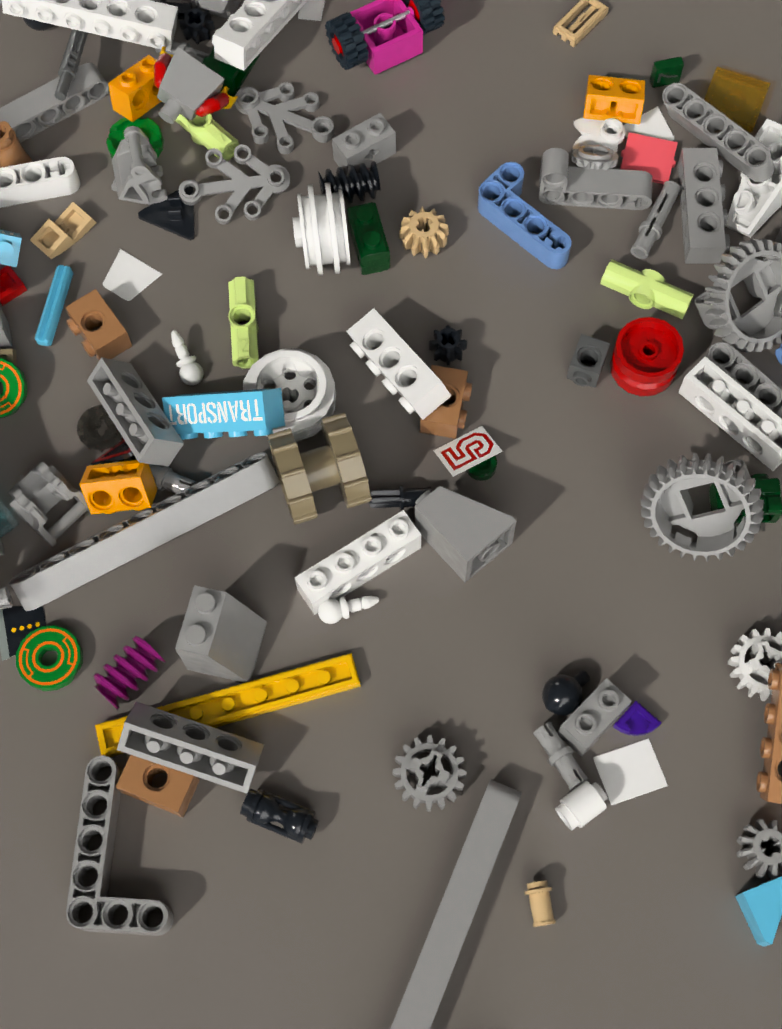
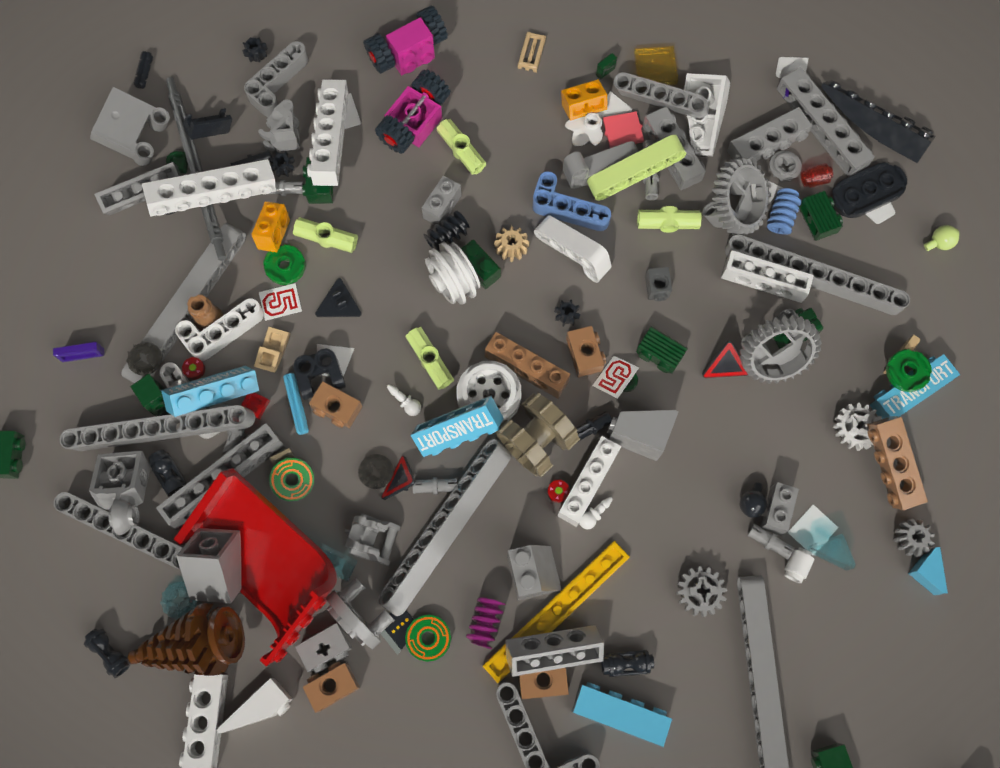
camera: 30 degrees left, 5 degrees up
(97, 183) = (280, 301): none -> white sticker
(118, 487) = (413, 506): light orange brick -> none
(119, 283) = (304, 378): none -> black piece
(132, 170) = (301, 286): light grey piece -> none
(135, 412) = (397, 453): light grey brick -> none
(188, 87) = (307, 214): light grey torso -> none
(234, 876) = (622, 715): none -> medium azure brick
(238, 184) = (373, 264): light grey plant -> none
(282, 113) = (372, 202): light grey plant -> none
(312, 554) = (558, 491): none -> red tile
(360, 385) = (527, 365): none -> medium nougat brick
(398, 364) = (577, 350): white brick -> none
(425, 93) = (455, 138): none -> yellowish green piece
(503, 269) = (576, 246): none -> white beam
(540, 903) = (805, 636): tan pin -> none
(545, 445) = (661, 350): none -> dark green brick
(595, 157) = (594, 146): light grey gear -> none
(622, 498) = (725, 364): none -> piece
(635, 205) = (636, 167): none -> yellowish green beam
(637, 721) = (804, 497): dark purple tile -> none
(640, 808) = (834, 551): none -> clear light blue slope
(646, 356) = (693, 264): red wheel -> none

